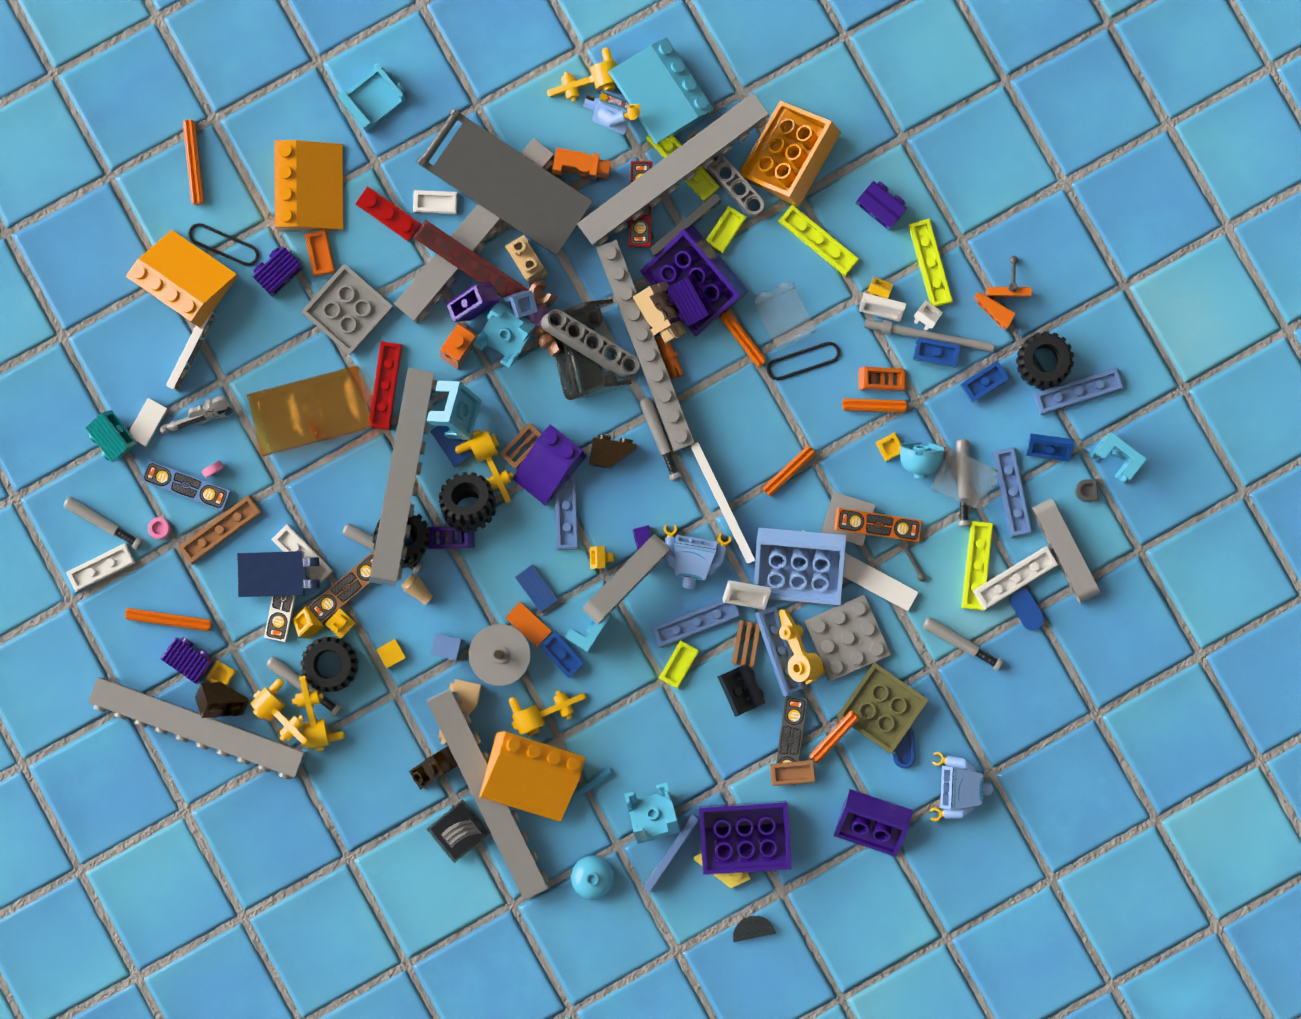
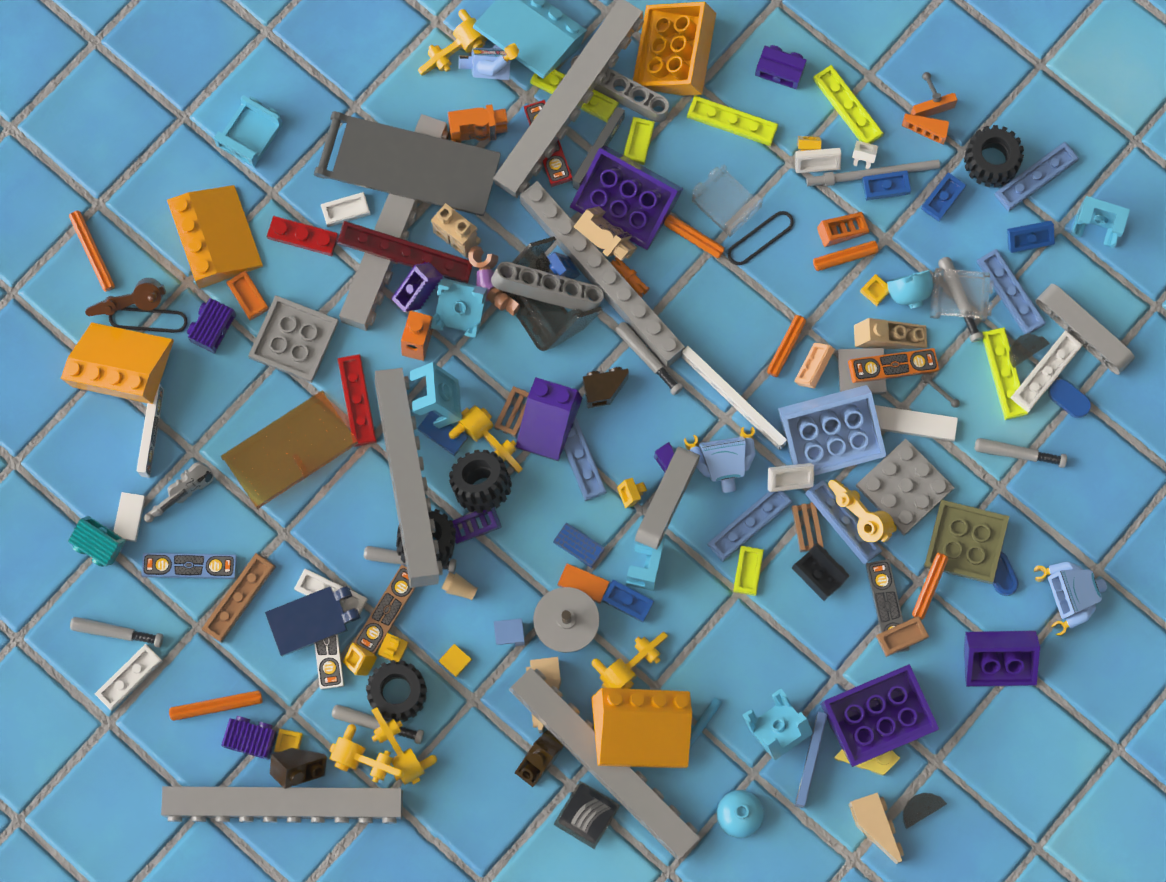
camera: 25 degrees left, 10 degrees down
(159, 528) = (176, 617): bright pink tile -> none
(212, 469) = (211, 539): bright pink tile -> none
(226, 223) = (145, 296): none -> reddish brown piece
(522, 303) = (467, 270): medium blue panel -> none
(612, 328) = (562, 266): none -> blue plate
(690, 300) = (629, 213): dark purple brick -> none
(704, 924) = (872, 821): none -> tan slope
(807, 498) = (814, 365): none -> light nougat plate
(886, 494) = (889, 334): none -> tan slope
(1004, 549) = (1025, 347): none -> clear smoke tile
(1087, 490) = (1082, 266): dark grey tile -> none

